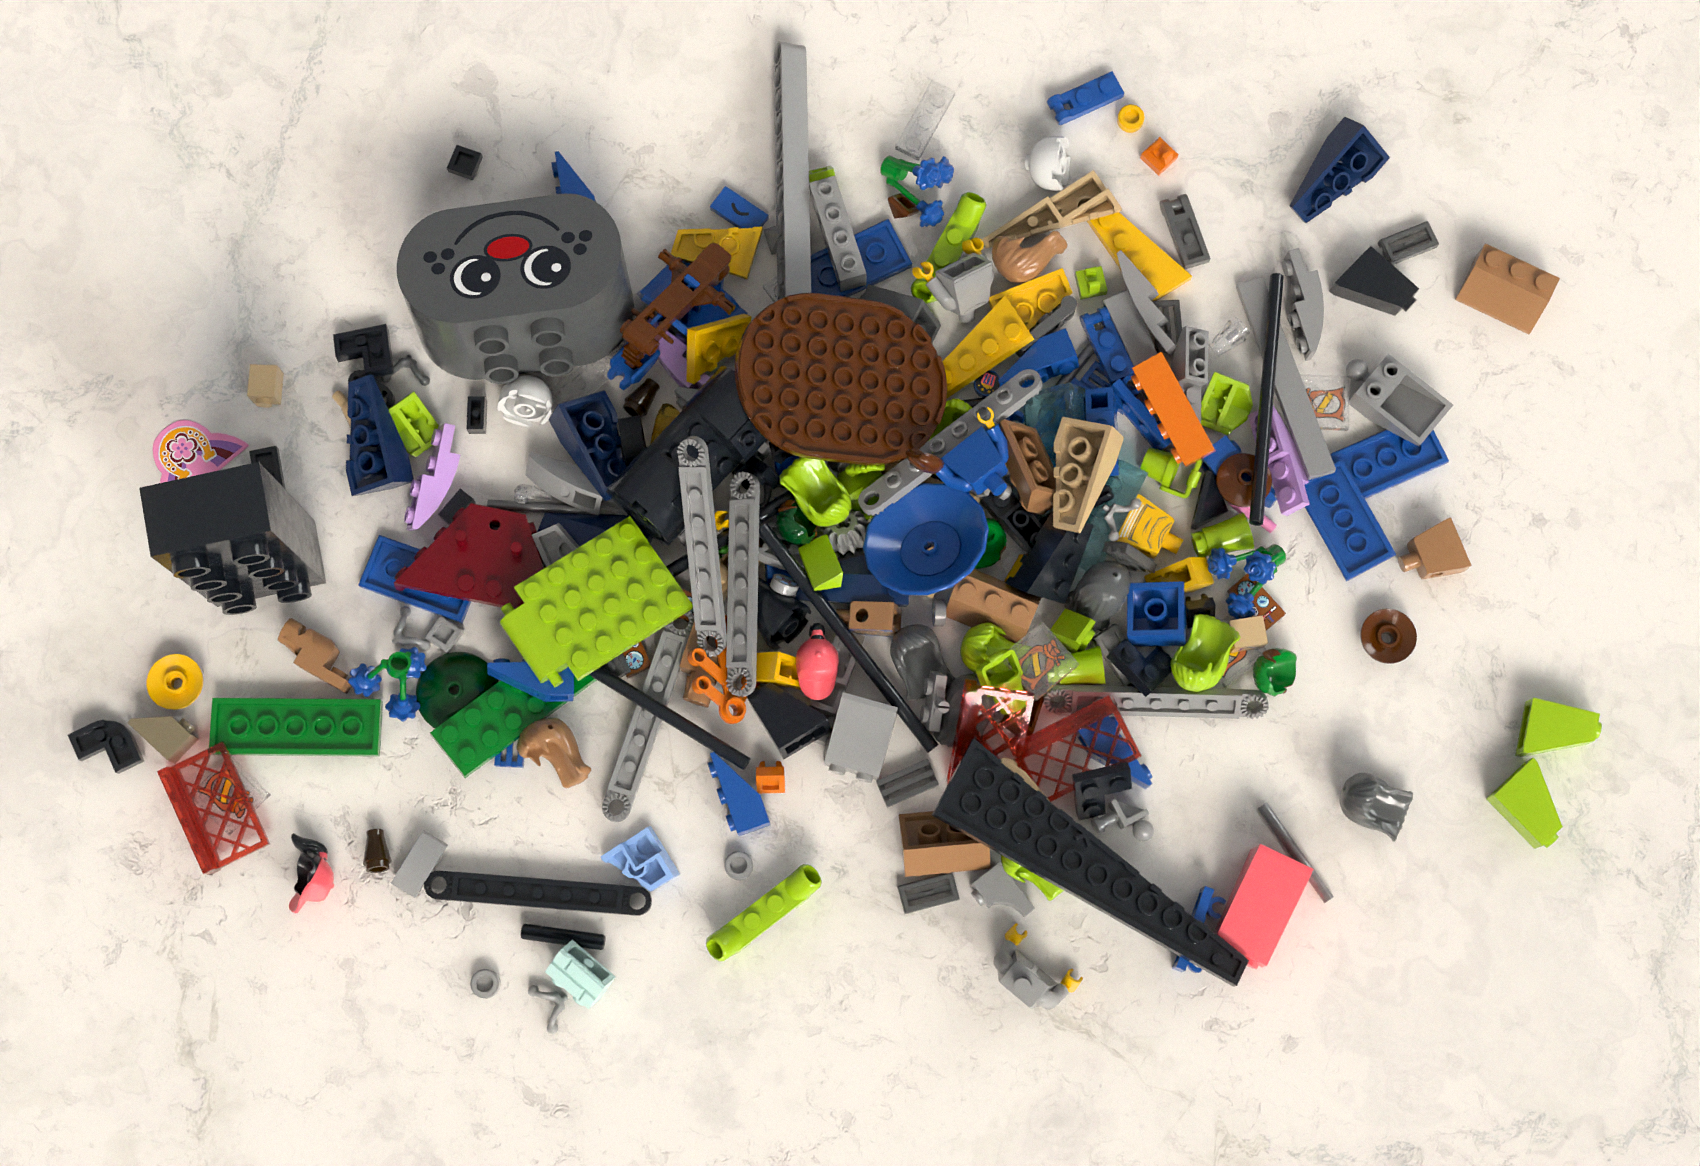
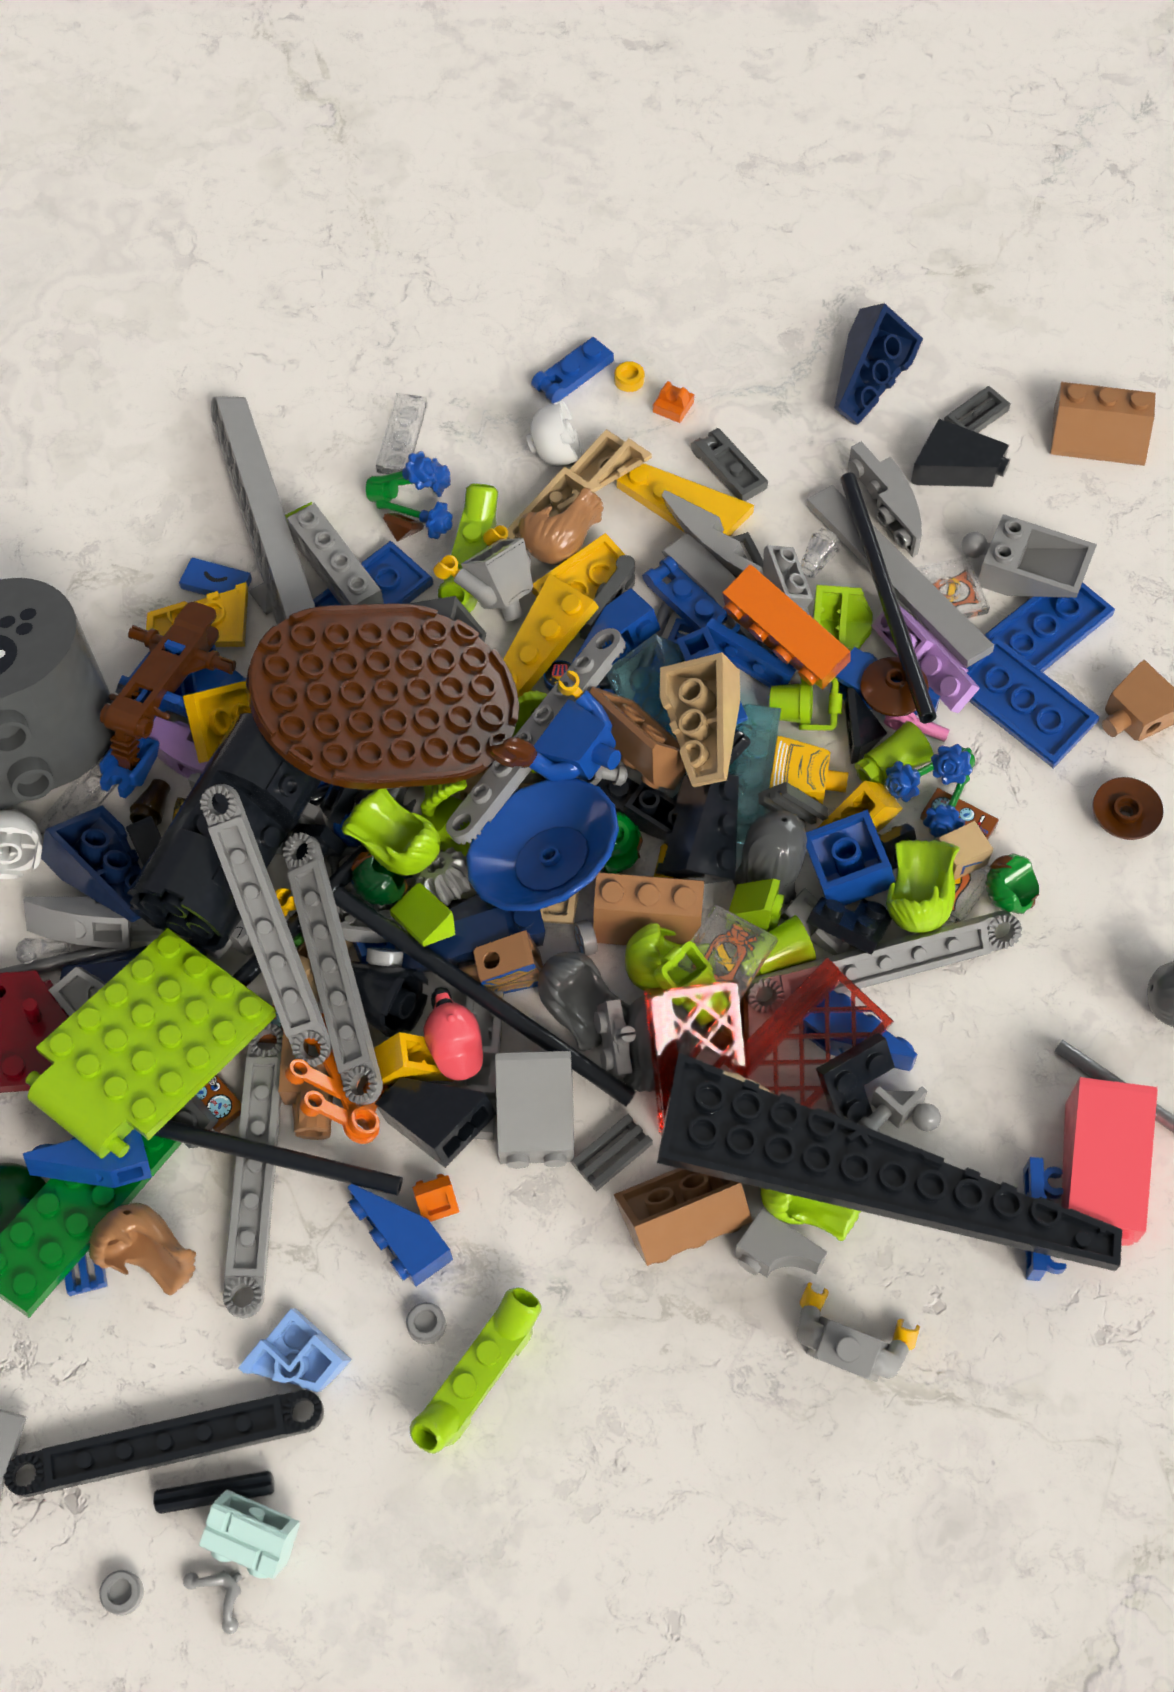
camera: 15 degrees left, 15 degrees down
(905, 899) = (657, 1298): dark grey tile -> none
(1091, 282) = (642, 542): lime tile -> none
(1115, 508) = (756, 753): light grey piece -> none

